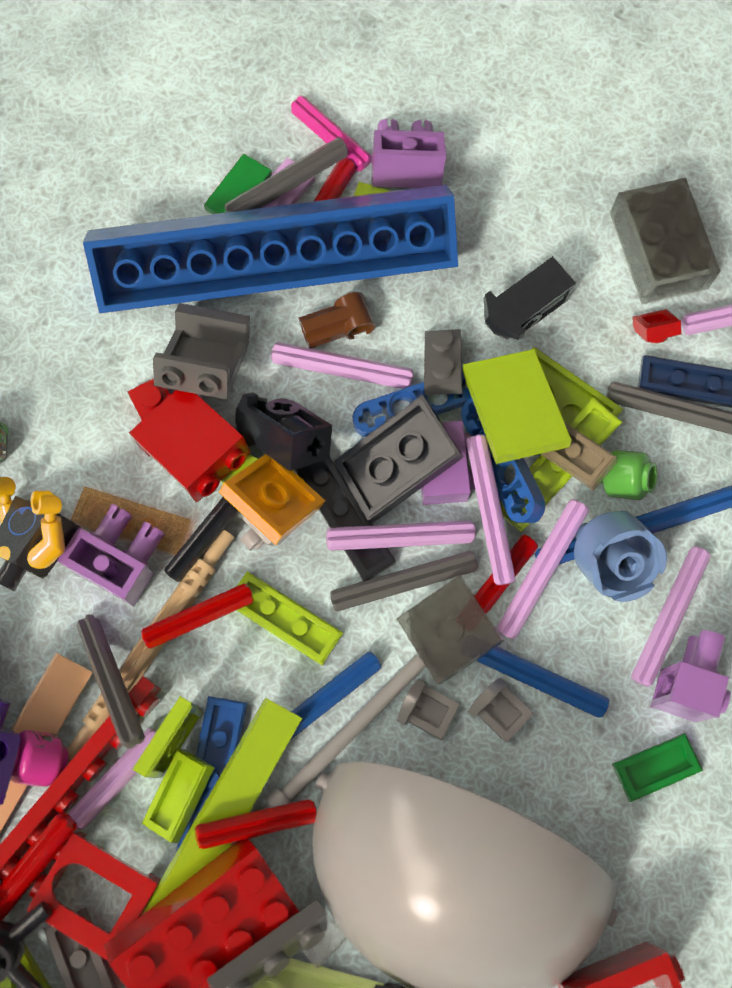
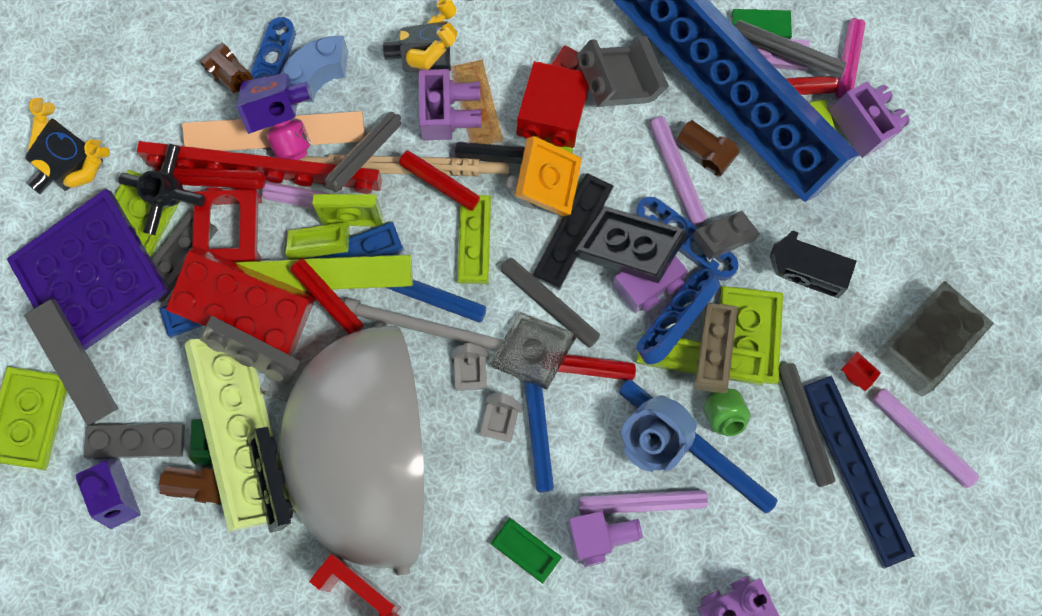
camera: 60 degrees right, 0 degrees up
(283, 430) = (600, 157): black piece -> none
(400, 535) = (579, 279): lavender axle -> none
(490, 510) = (635, 326): lavender axle -> none
(516, 406) = (722, 299): lime tile -> none
(542, 568) = (617, 388): lavender axle -> none

